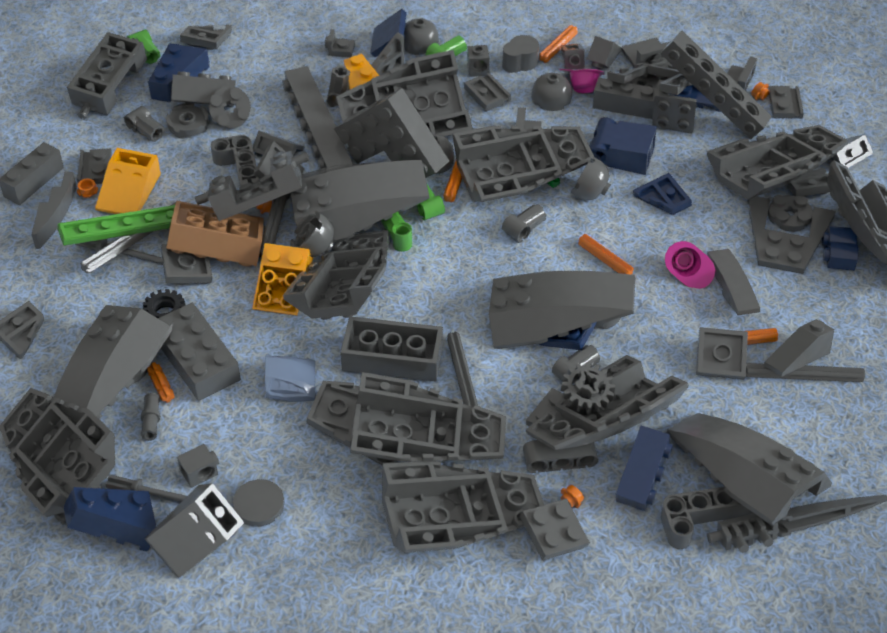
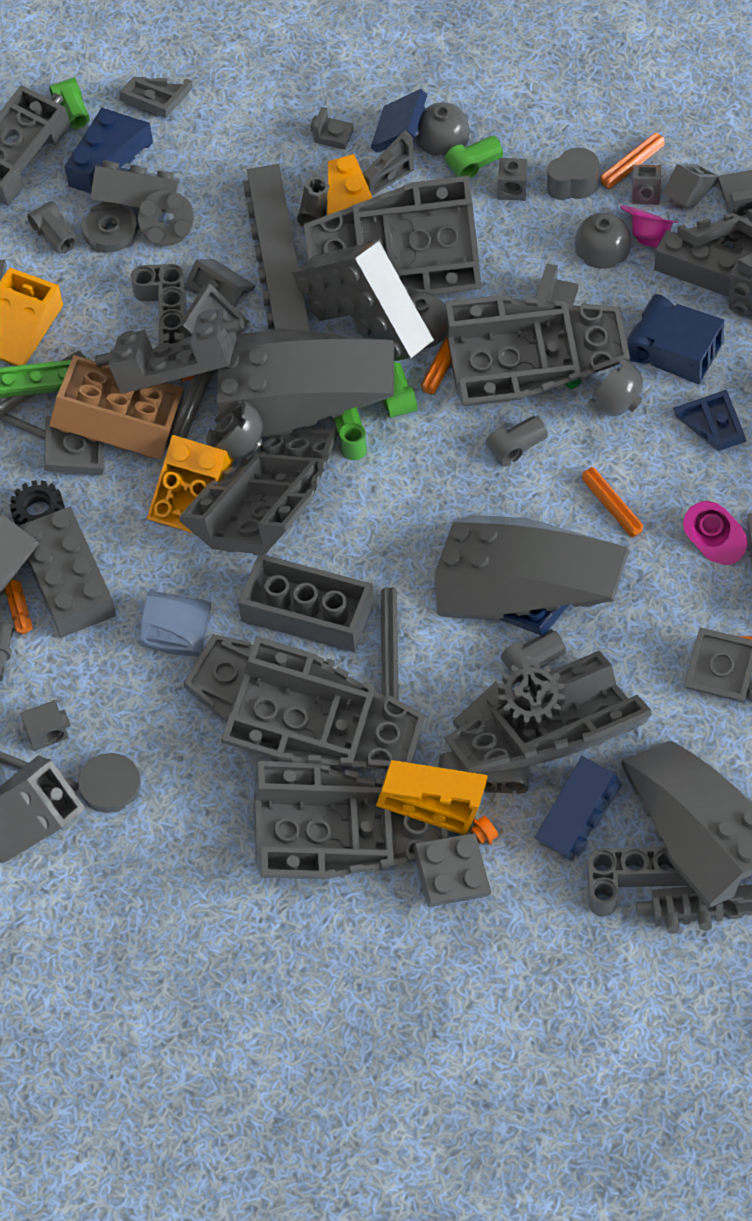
camera: 15 degrees right, 10 degrees up
(487, 91) = (515, 229): dark grey plate -> none
(529, 471) = (432, 794): none -> light orange wedge

